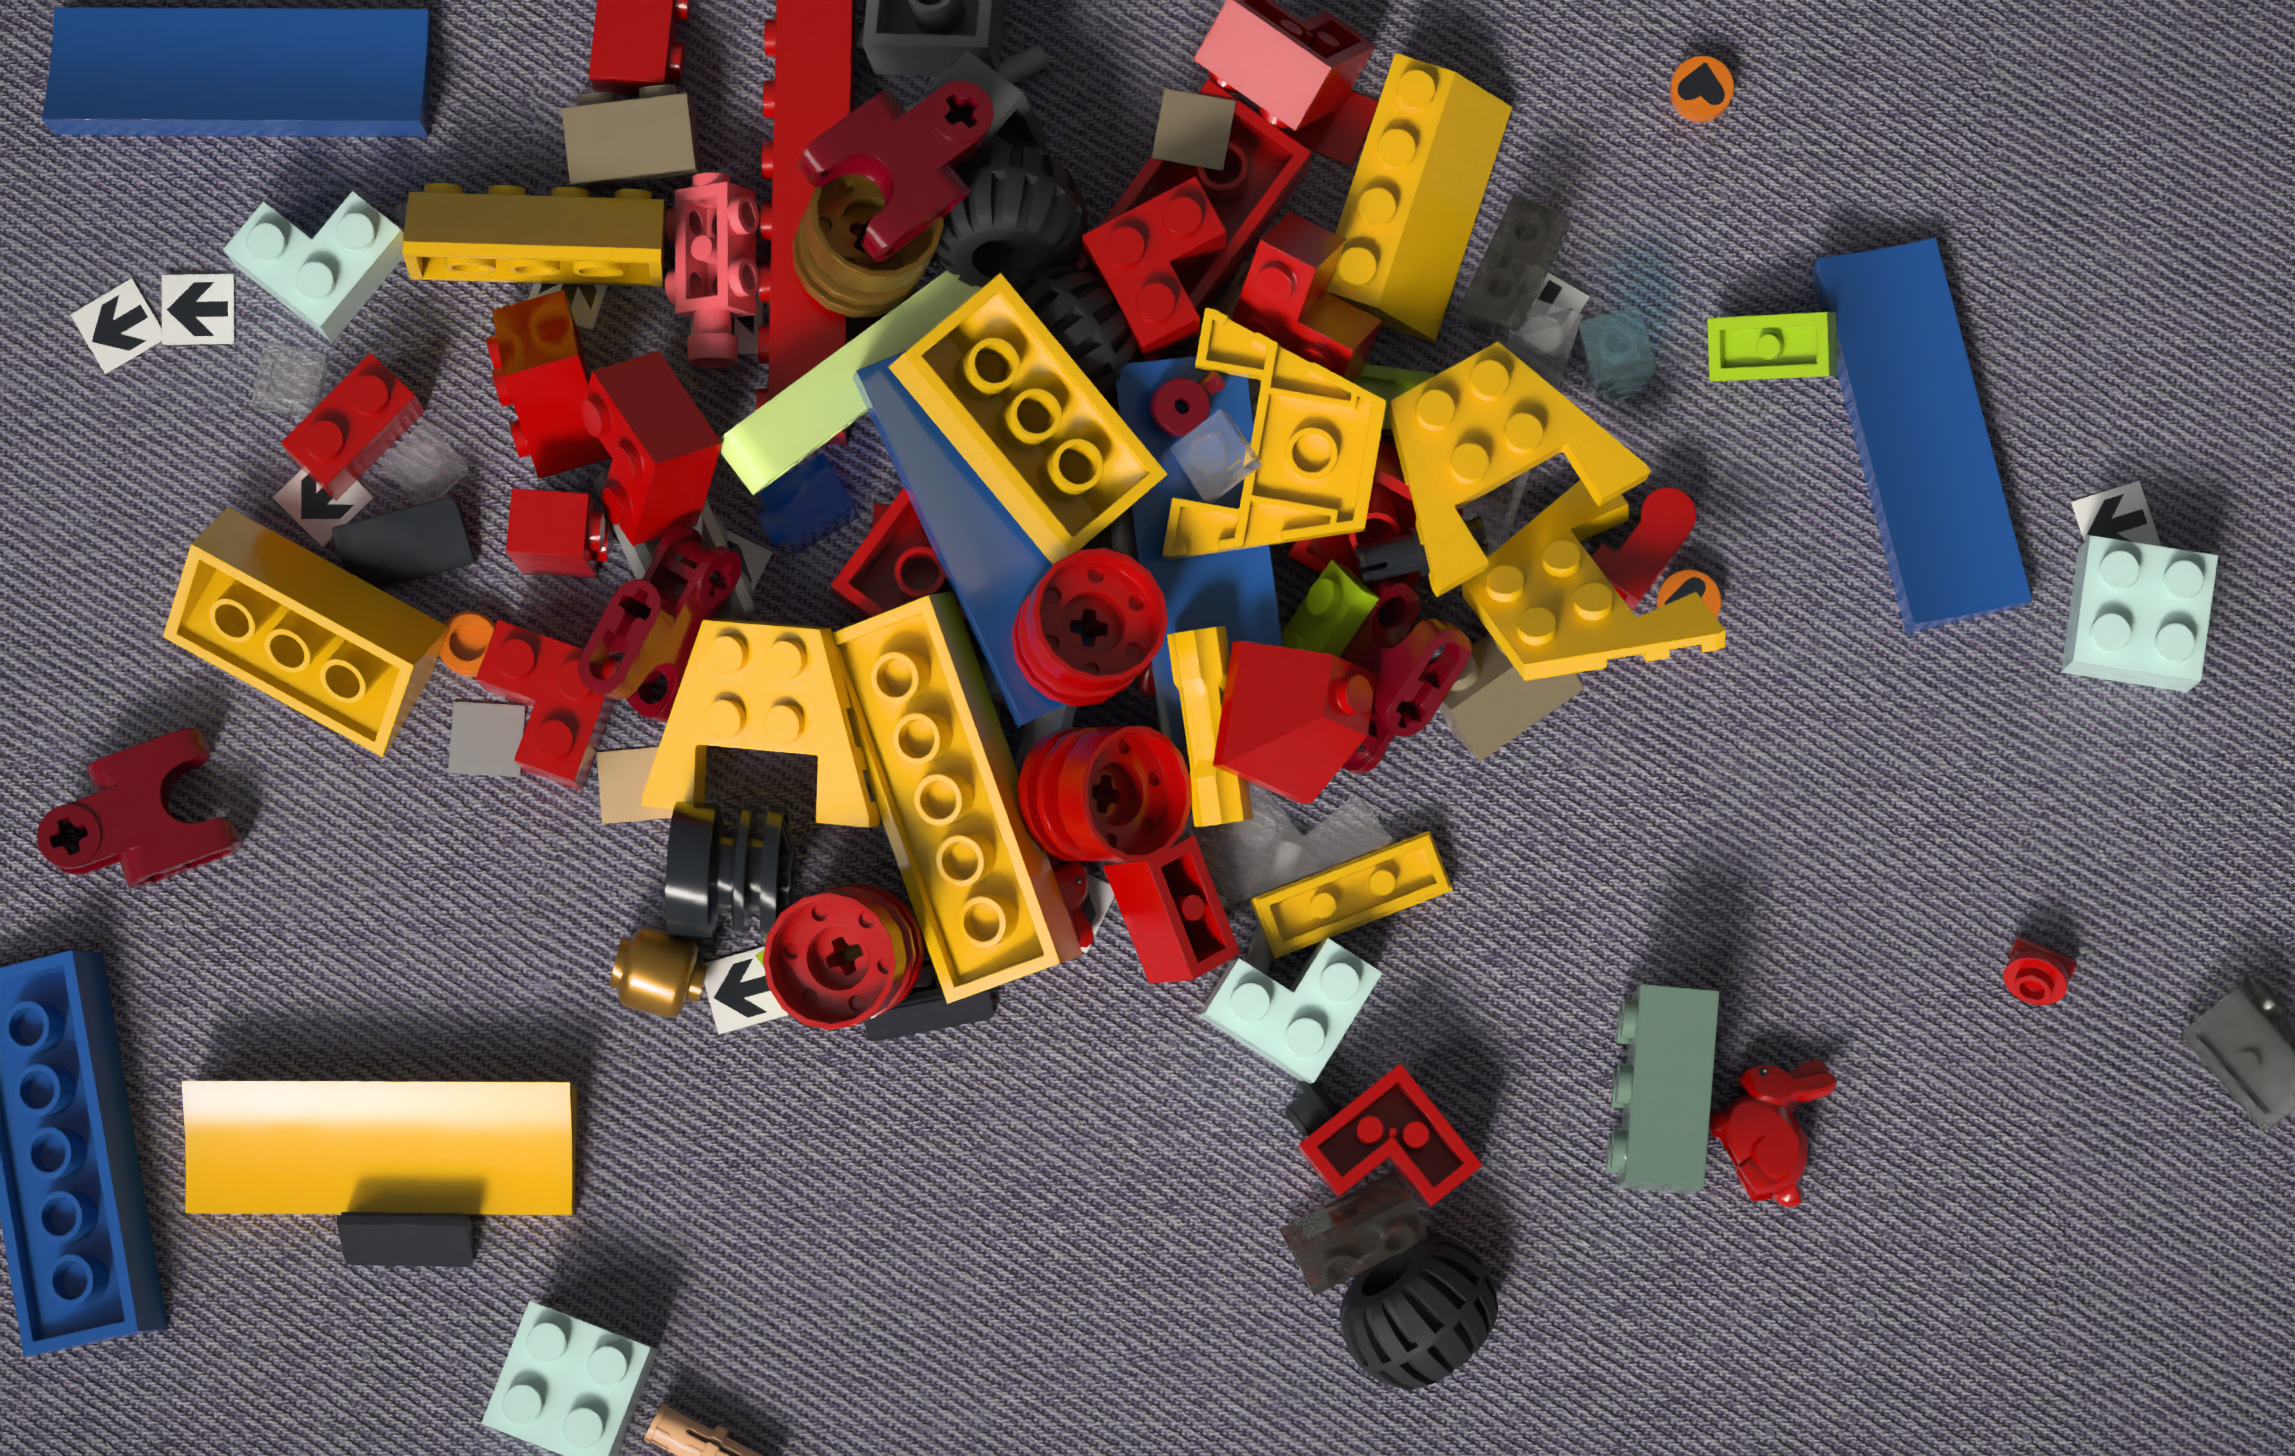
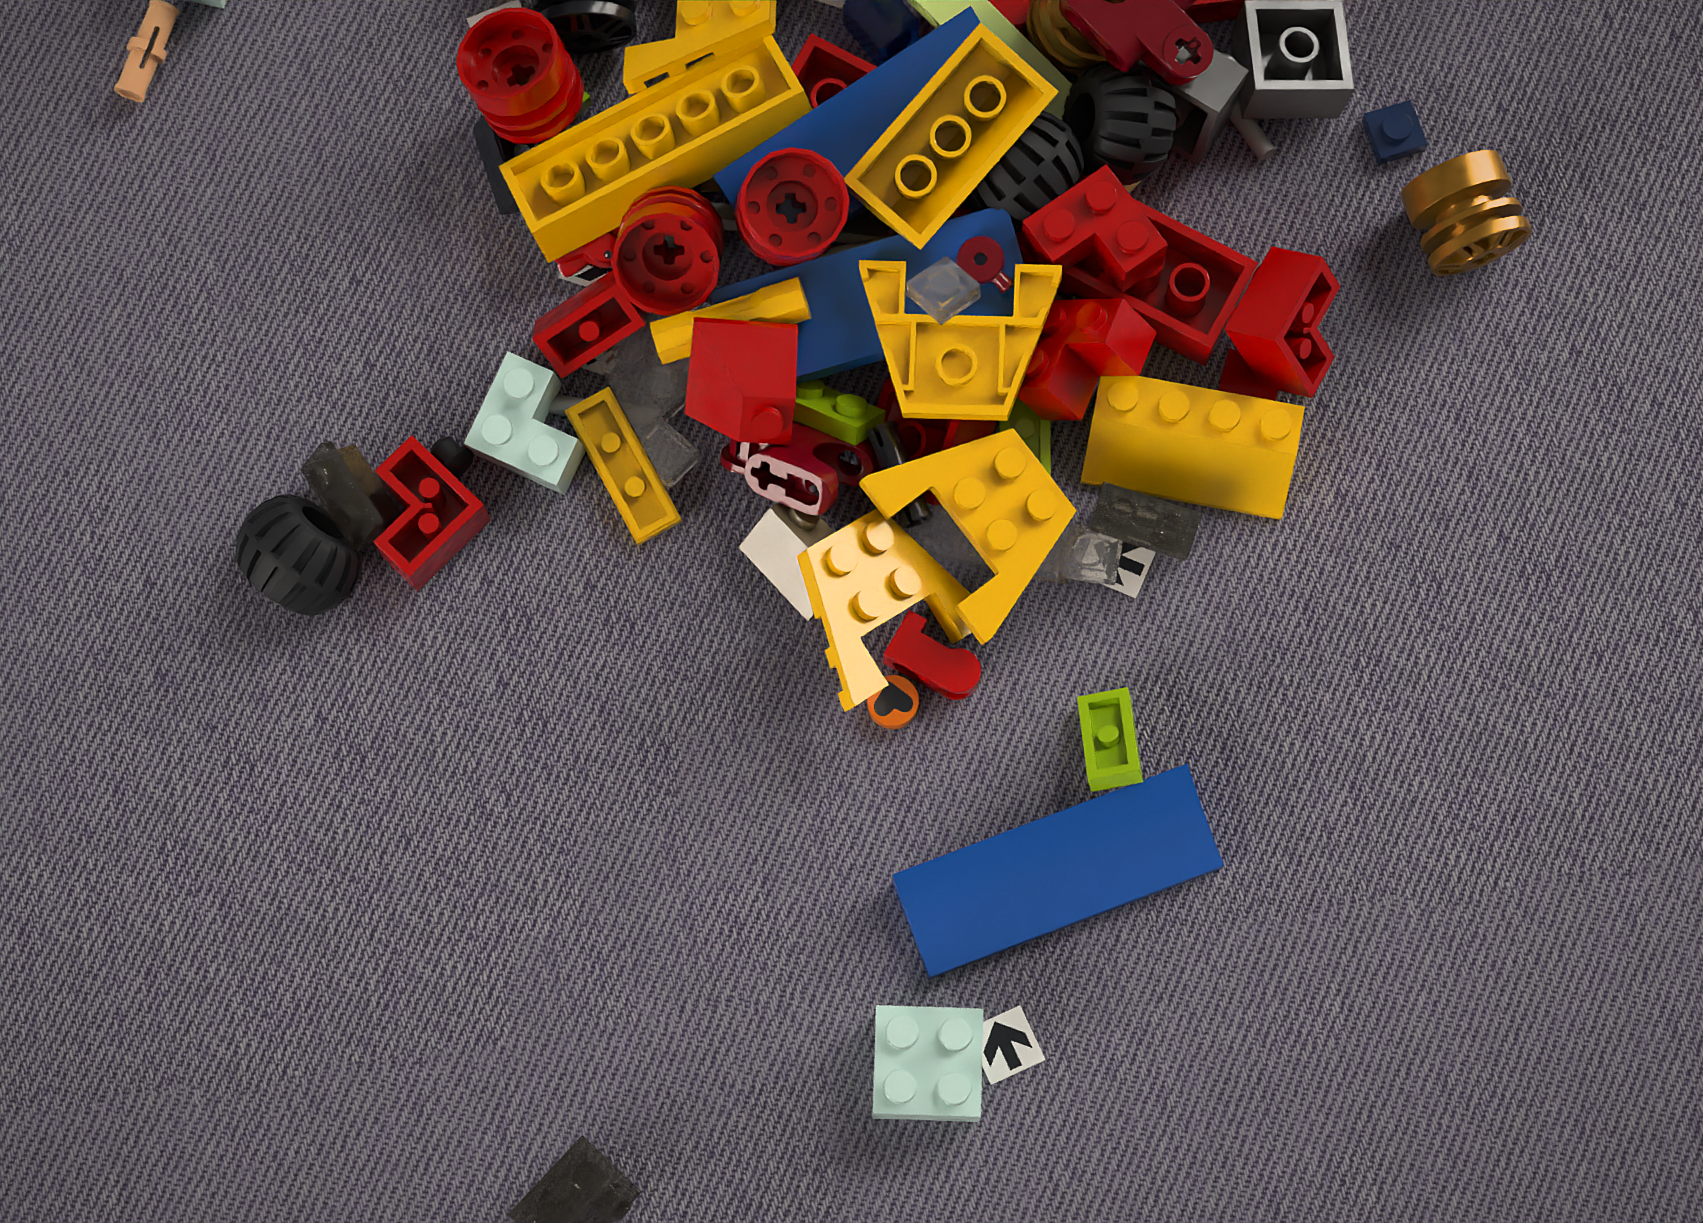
camera: 80 degrees right, 5 degrees down
(1193, 129) = (1215, 255): dark tan sticker -> none
(1617, 355) = (1084, 614): clear light blue bracket -> none
(1663, 1089) = (486, 716): sand green brick -> none
(1701, 89) = (1320, 664): orange tile -> none
(1764, 1133) = (467, 806): red animal -> none
(2037, 972) = (622, 1015): red plate -> none

